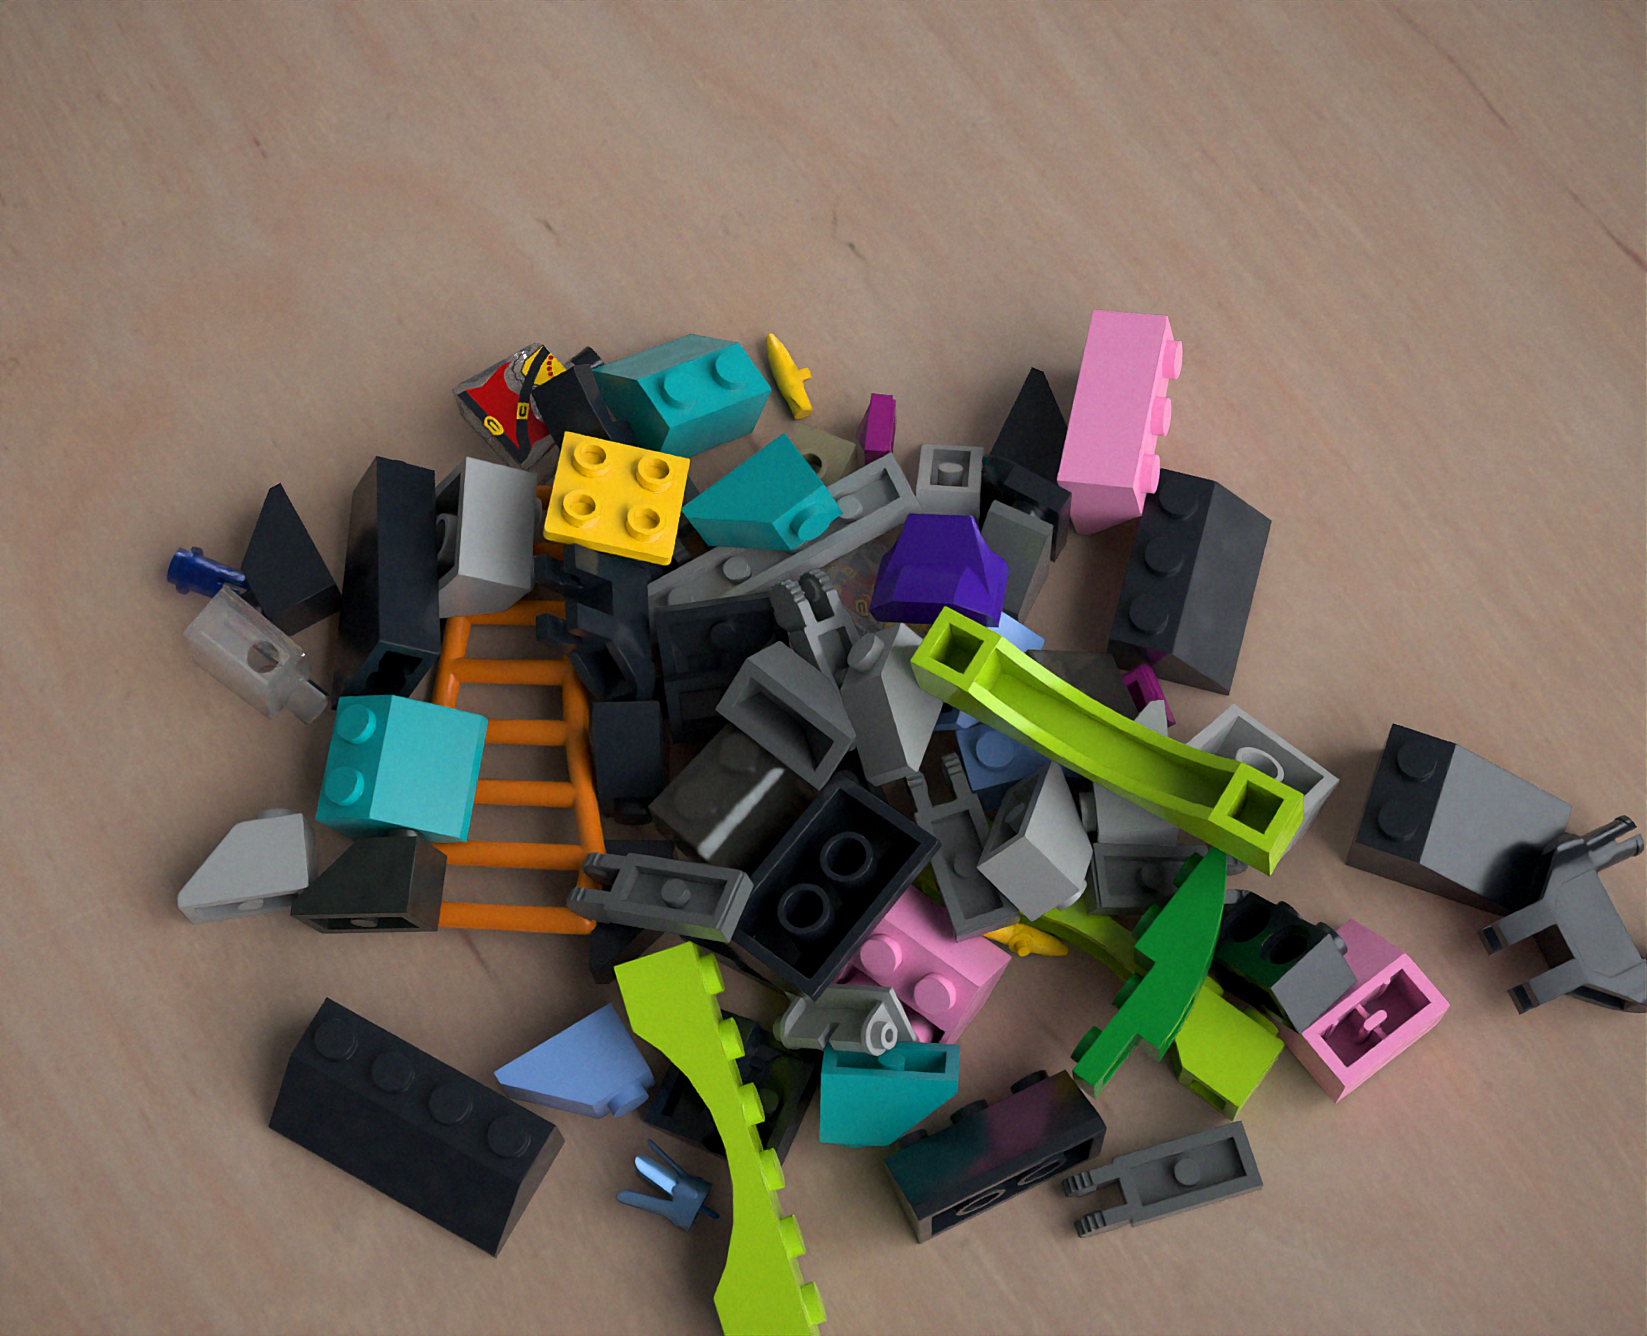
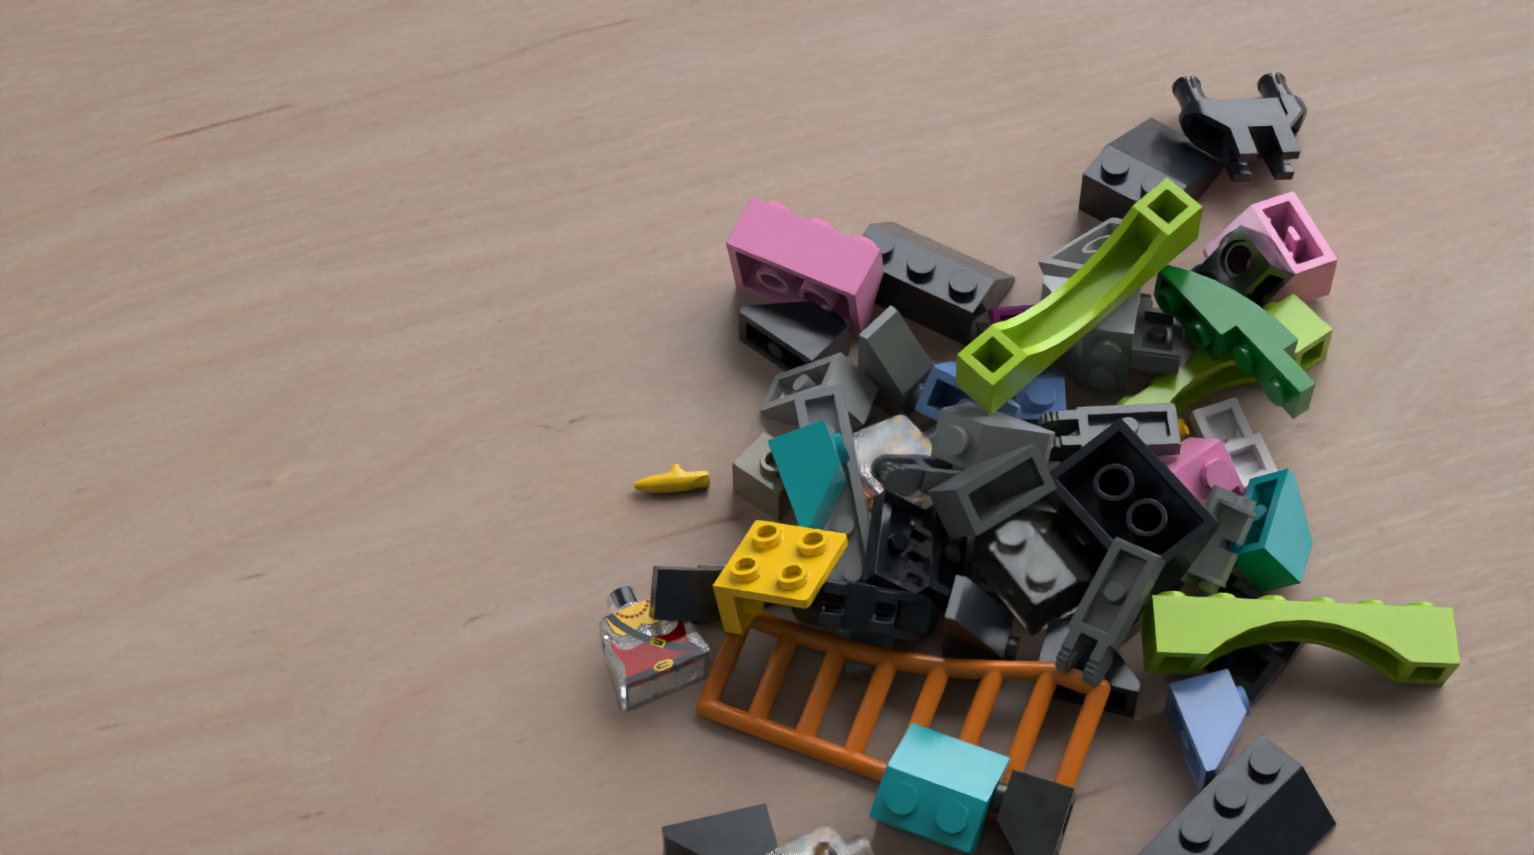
camera: 80 degrees left, 15 degrees down
(389, 584) = (800, 768): black slope -> none
(485, 537) = (761, 701): light grey slope -> none
(684, 1189) = (1319, 683): flat silver piece -> none
(685, 394) = (673, 527): teal slope -> none
(878, 427) = (747, 423): magenta tile -> none
(939, 565) = (899, 390): dark purple slope -> none
(993, 1152) = (1336, 476): black slope -> none
(1029, 494) = (843, 329): black plate -> none
(1033, 1023) = (1228, 423): none -> white slope
(1038, 844) = (1123, 377): light grey slope -> none
(1169, 1179) = (1365, 394): dark grey hinge -> none

